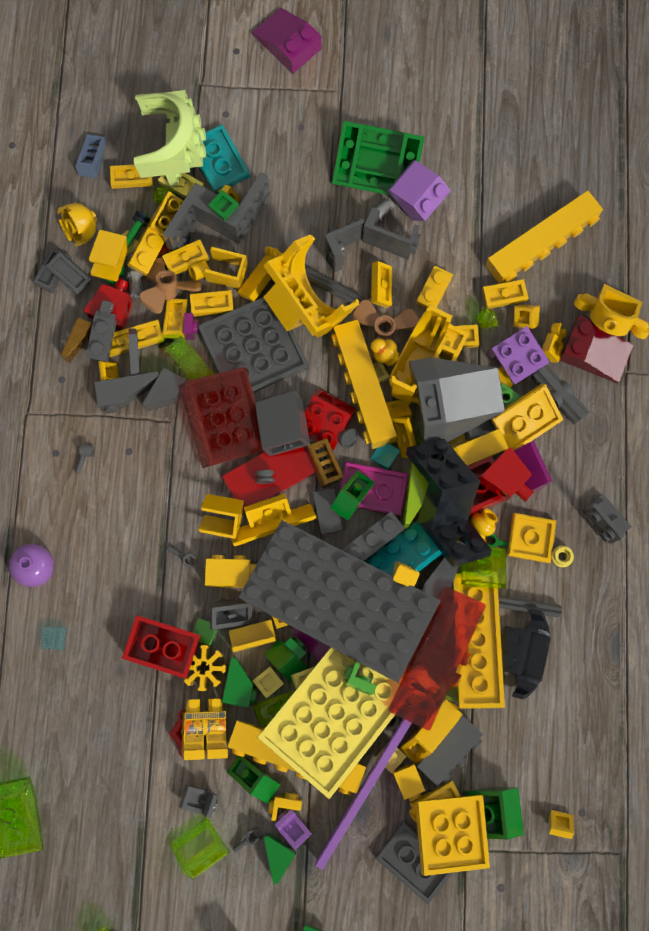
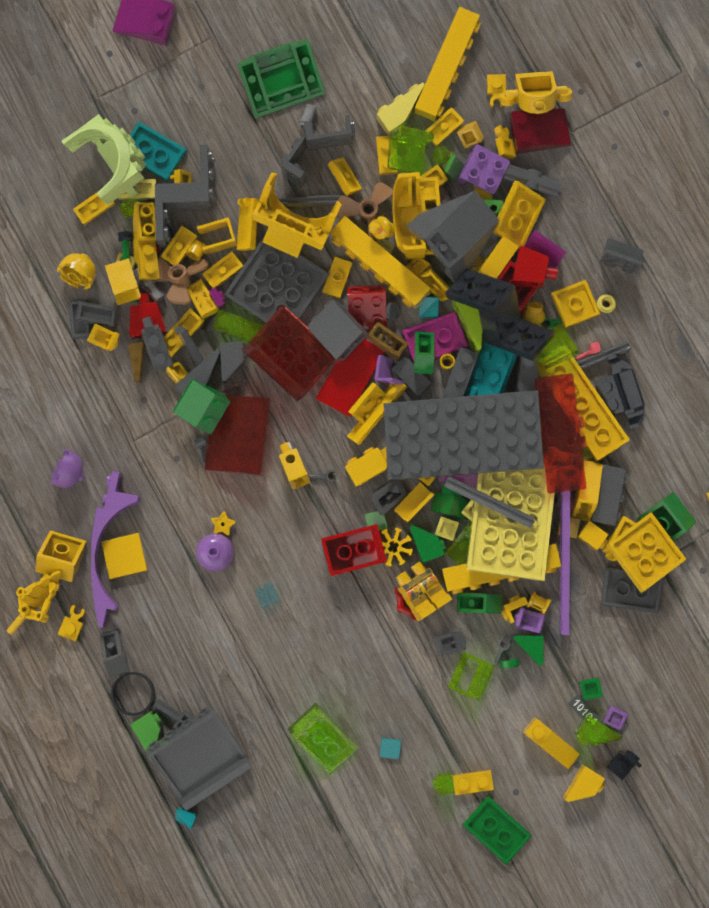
camera: 30 degrees left, 5 degrees up
(60, 299) = (103, 338): none -> yellow bracket
(62, 543) = (228, 523): none -> yellow plate
(74, 870) = (390, 748): none -> teal slope
(86, 167) = (53, 220): sand blue slope -> none
(106, 416) = (201, 406): none -> green slope
(126, 466) = (240, 437): none -> clear red slope
(157, 528) = (295, 471): none -> yellow torso
(223, 205) = (189, 189): green plate -> none
(224, 506) = (337, 436): yellow piece -> none
(245, 860) = (509, 663): none -> green tile
(264, 477) = (349, 379): dark grey bush -> none
(304, 489) = (383, 371): none -> medium lavender bracket
(313, 816) = (538, 602): none -> yellow bush
(315, 375) = (337, 277): none -> yellow plate
(323, 683) = (489, 502): none -> dark grey axle
(359, 683) = (515, 486): bright green bracket -> none
(372, 512) = (447, 357): none -> yellow hose
(405, 574) = (500, 387): yellow slope -> none
(419, 191) = (329, 85): medium lavender slope -> none
(458, 293) = (408, 149): none -> clear neon green bracket
(466, 256) = (400, 110): none -> light yellow slope
(490, 337) = (453, 168): none -> bright green slope
(524, 593) = (594, 348): none -> coral hand
(579, 284) = (496, 86): none -> yellow plate

